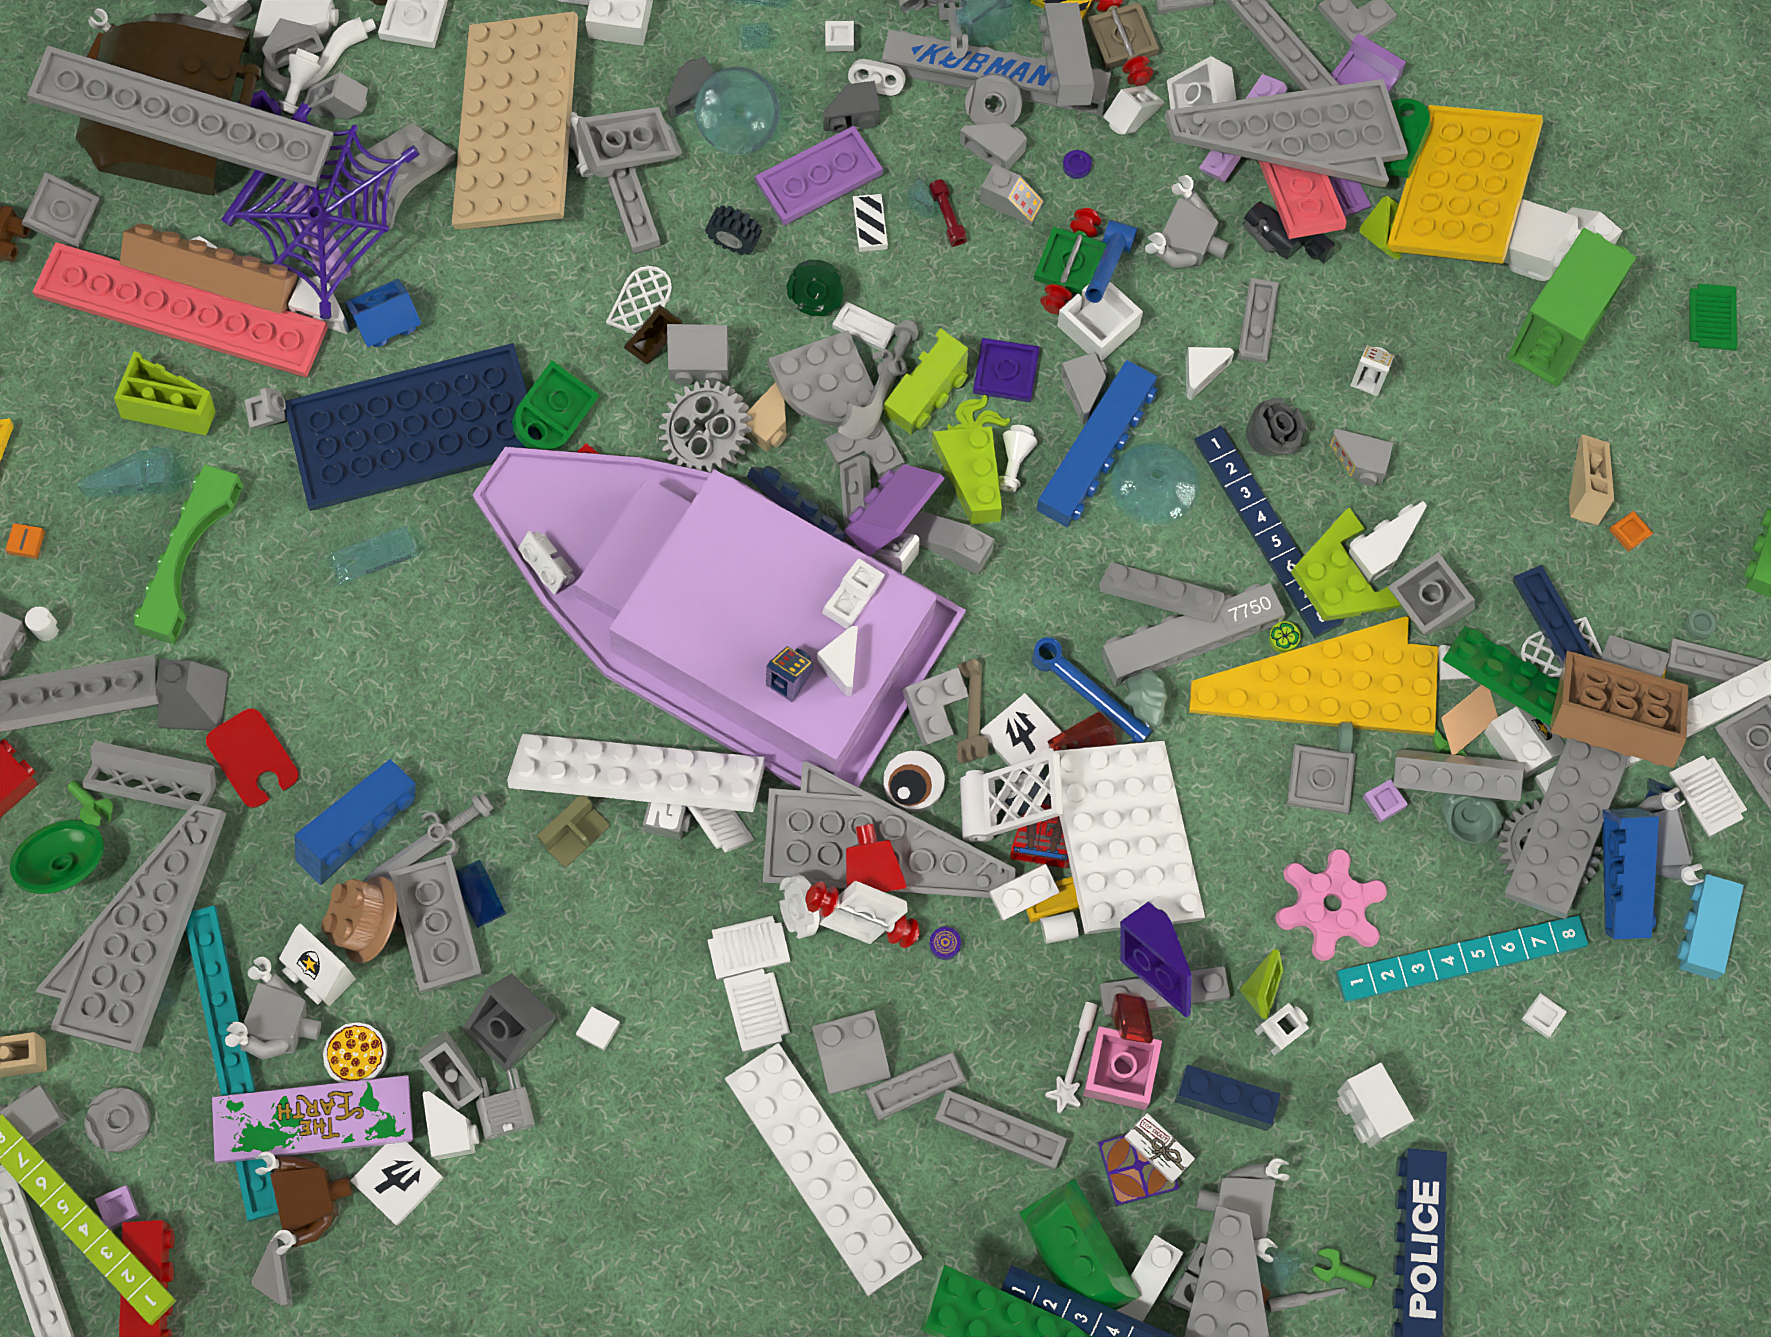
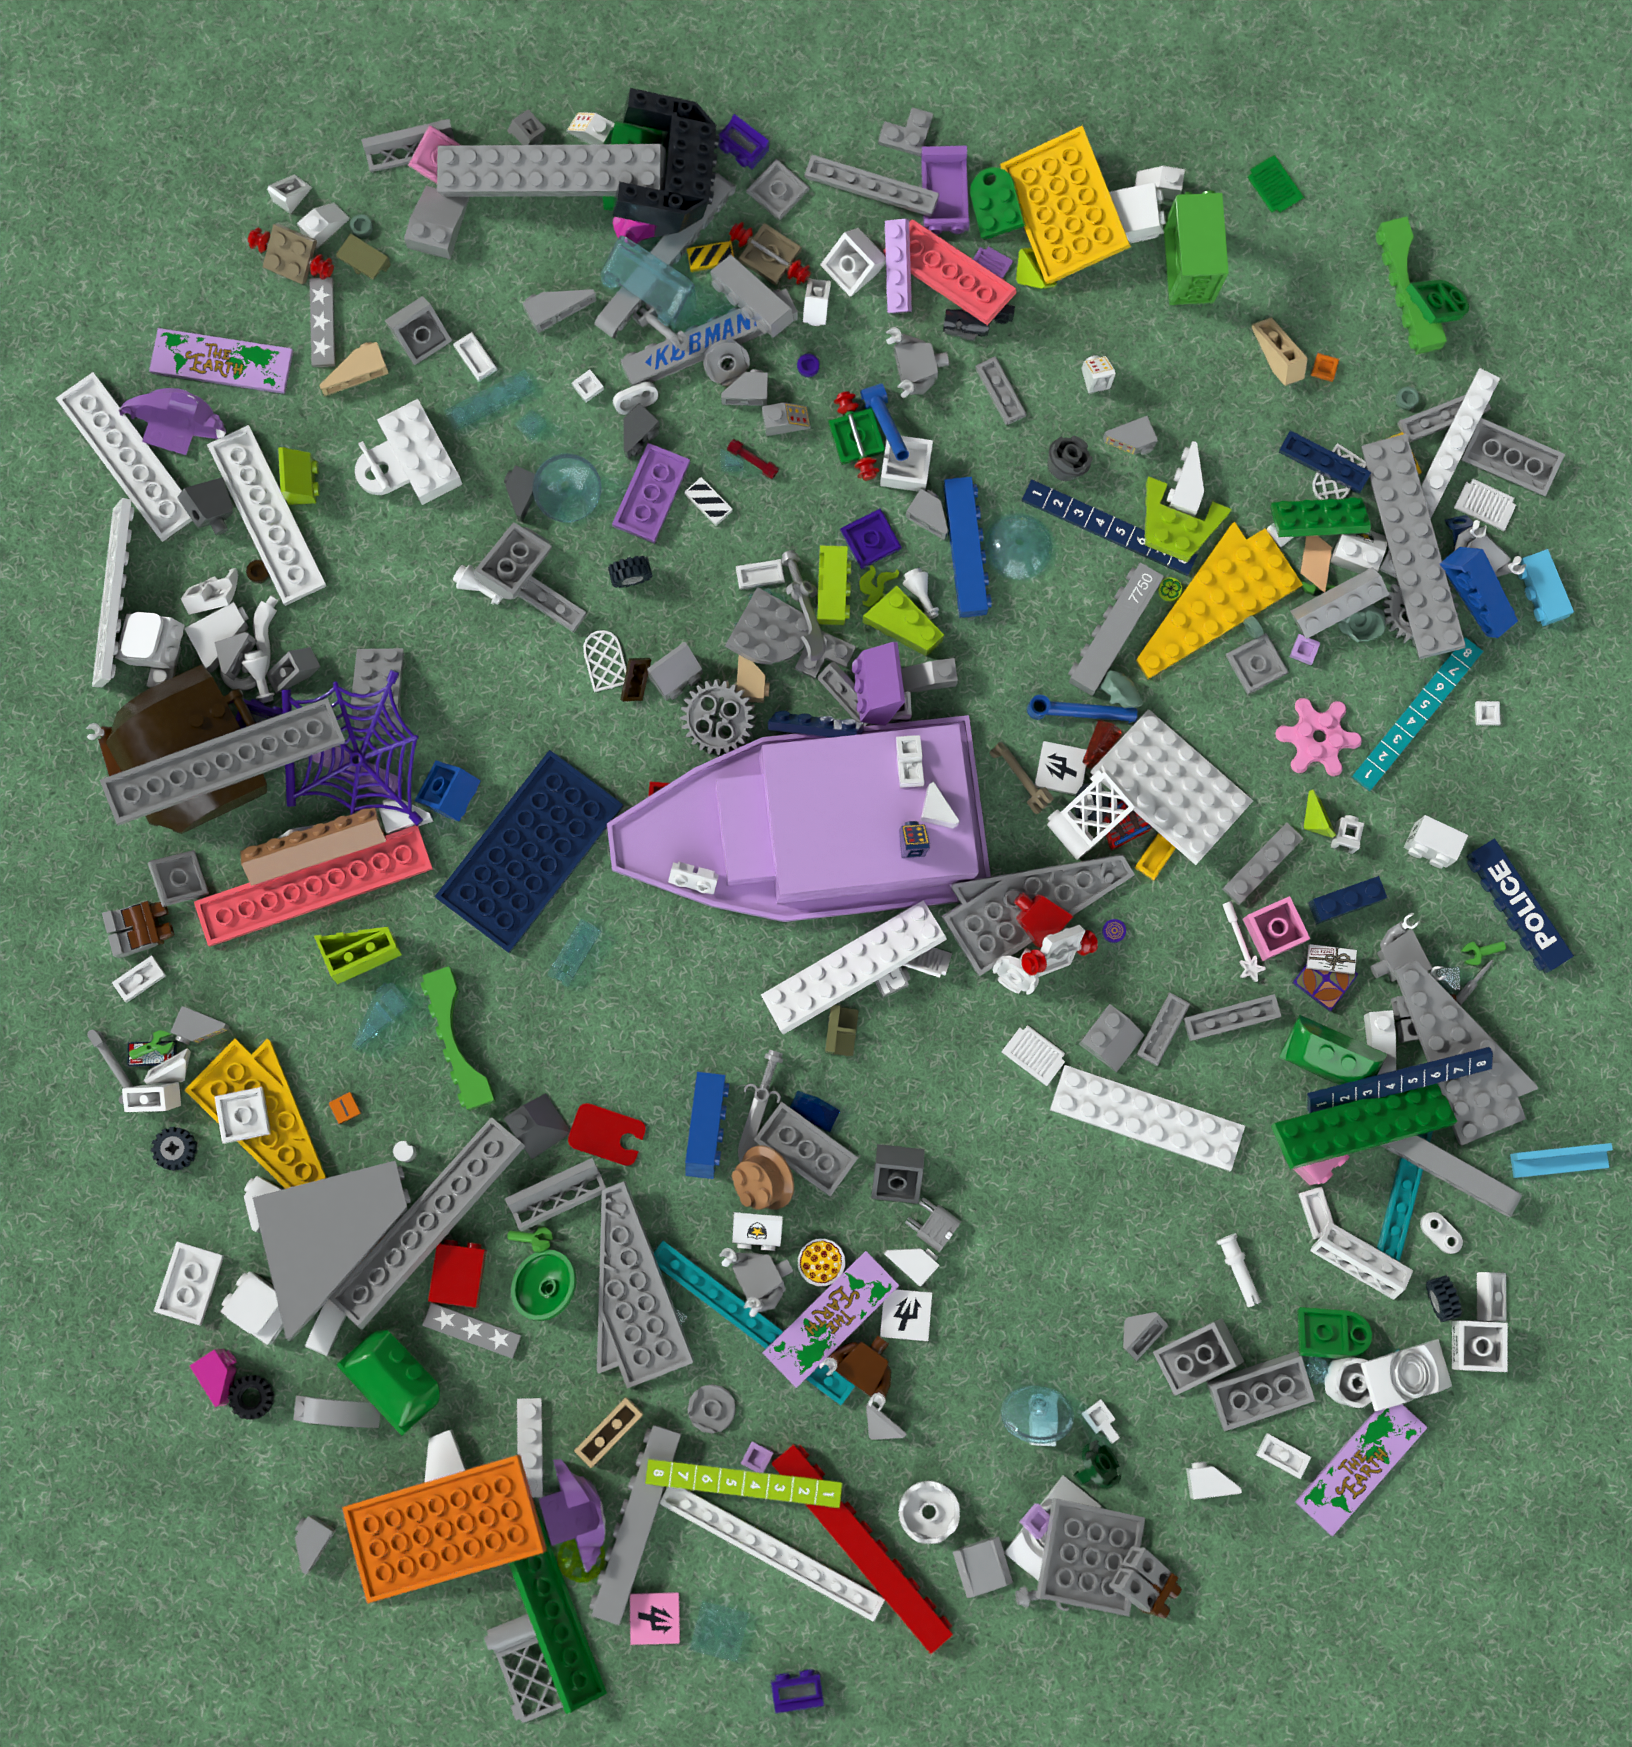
camera: 40 degrees left, 10 degrees up
(265, 409) = (427, 910): light grey bracket -> none
(450, 1070) = (887, 1228): light grey slope -> none
(515, 121) = (426, 598): tan plate -> none
(554, 407) = (611, 773): green plate -> none
(597, 1028) = (952, 1137): white tile -> none
(748, 947) = (1000, 1021): white window -> none
(816, 287) = (713, 571): dark green tile -> none
(914, 781) = (1019, 845): tile -> none
(927, 700) = (990, 790): light grey plate -> none
(1023, 891) = (1138, 865): white plate -> none
(1059, 928) = (1174, 871): white piece -> none
(1132, 1018) = (1262, 895): clear red slope -> none
(1155, 955) = (1249, 847): dark purple slope -> none
(1161, 592) = (1079, 616): light grey plate -> none
(1204, 366) = (991, 448): white slope -> none
(1320, 130) = (951, 237): light grey wing -> none
(1433, 595) = (1241, 499): light grey slope -> none
(1621, 709) = (1407, 492): medium nougat slope -> none

